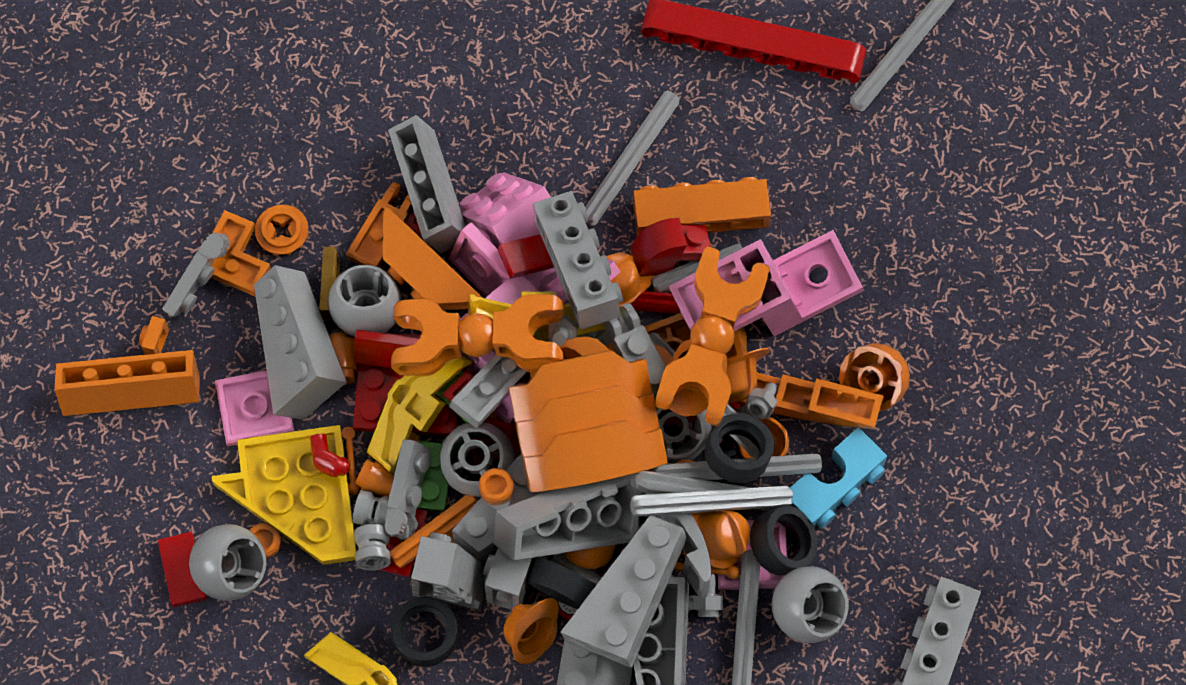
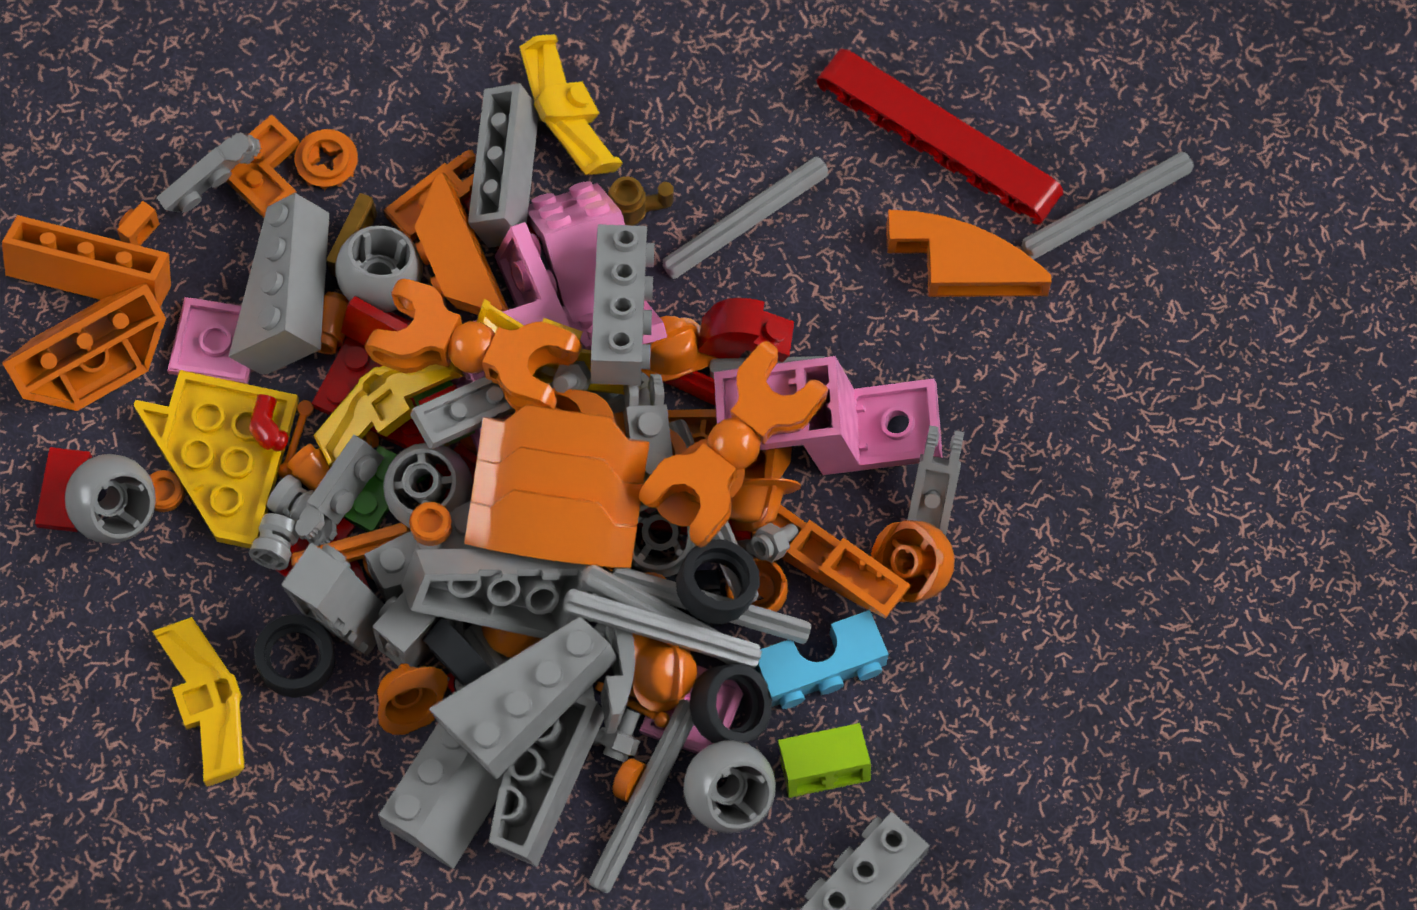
camera: 20 degrees right, 0 degrees up
(159, 450) = (90, 351): none -> orange wedge
(454, 121) = (565, 106): none -> yellow plate
(525, 256) = (568, 281): red tile -> none
(538, 172) = (633, 203): none -> pearl gold piece
(714, 204) = (815, 304): orange brick -> none
(727, 629) = (627, 779): none -> orange tile
(812, 127) = (965, 257): none -> orange slope
(867, 308) = (936, 482): none -> light grey hinge
(870, 556) = (824, 760): none -> lime hinge

